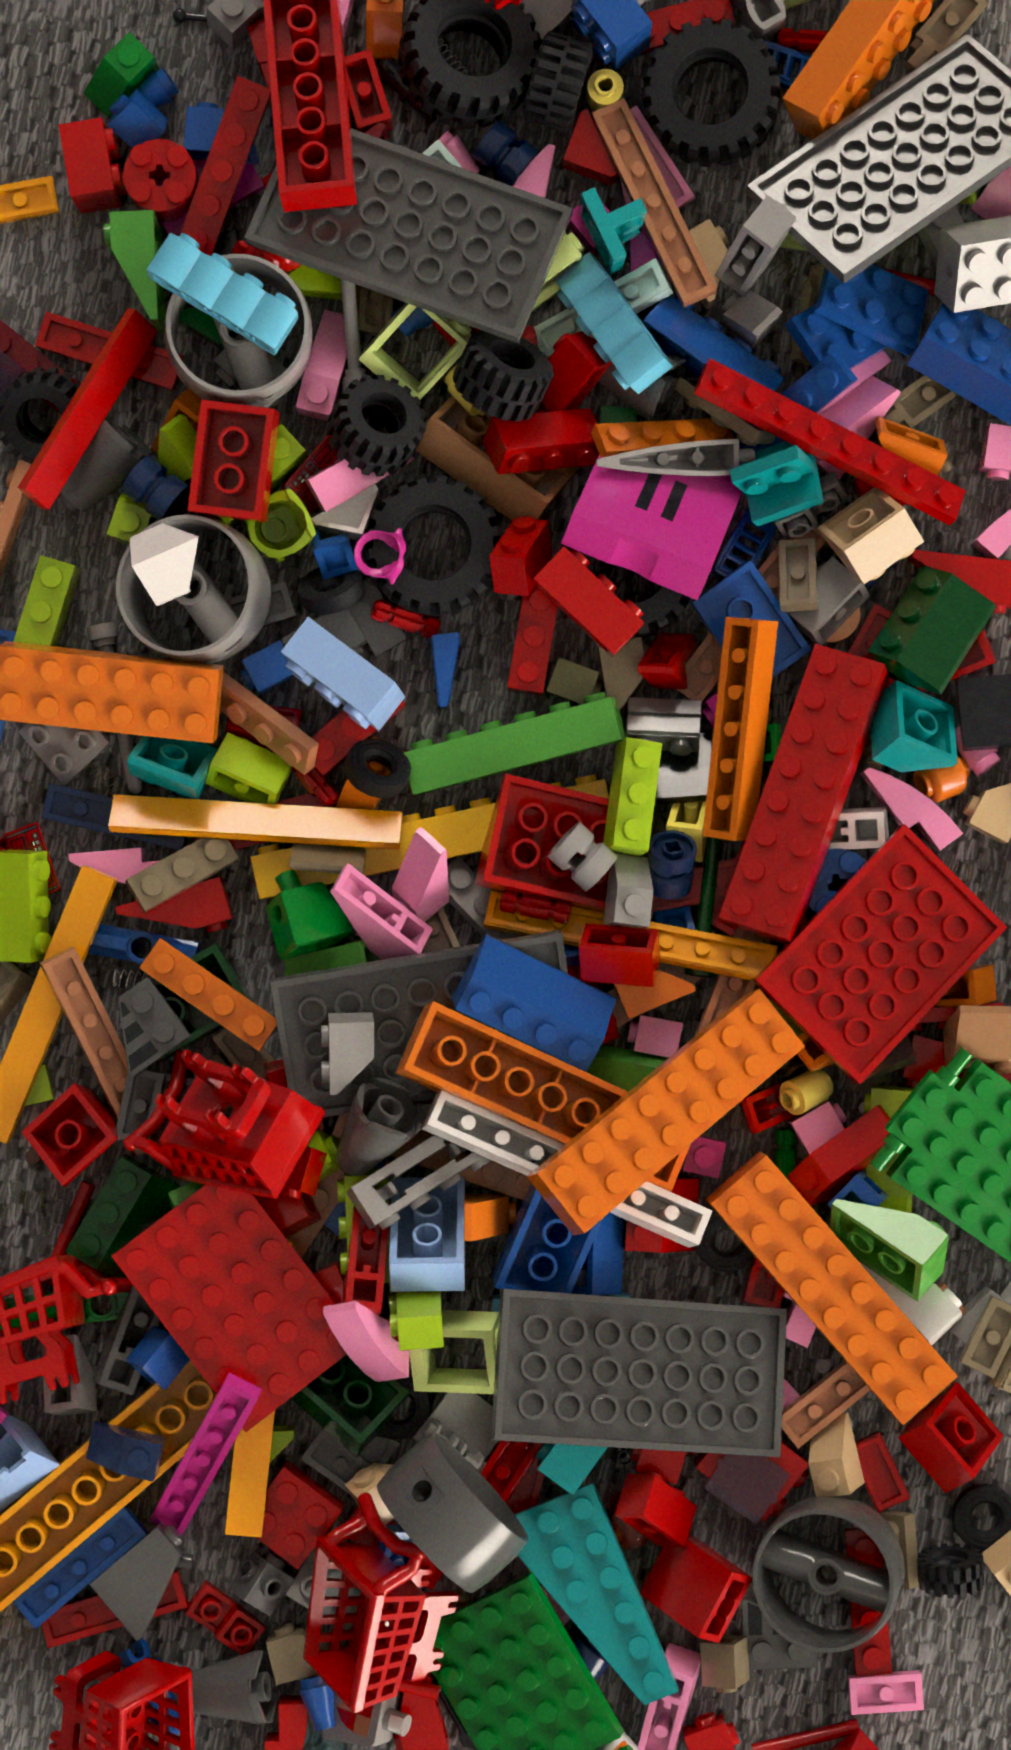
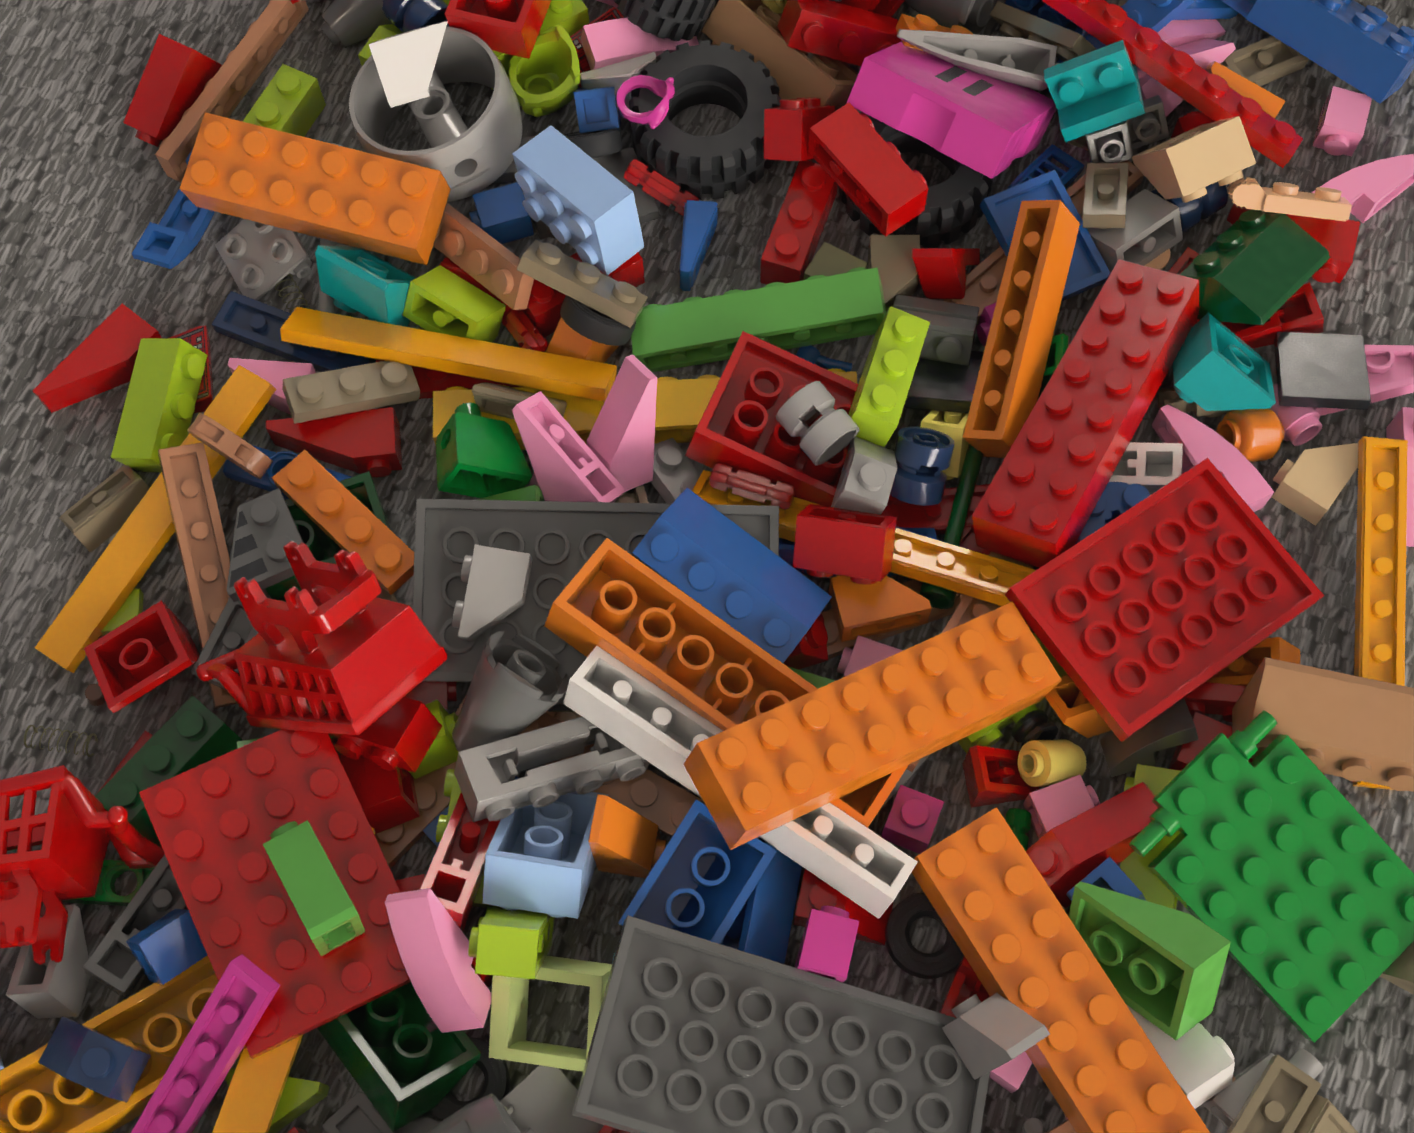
camera: 10 degrees right, 20 degrees down
(97, 945) = (230, 446): none -> nougat piece
(266, 1310) = (313, 886): none -> bright green slope
(360, 746) = (582, 282): none -> dark tan plate
(561, 764) = (813, 355): none -> blue hand
(652, 1274) = (827, 943): none -> dark pink slope
(783, 1321) = (991, 1033): none -> light grey slope
(958, 561) = (1287, 199): none -> light nougat hinge

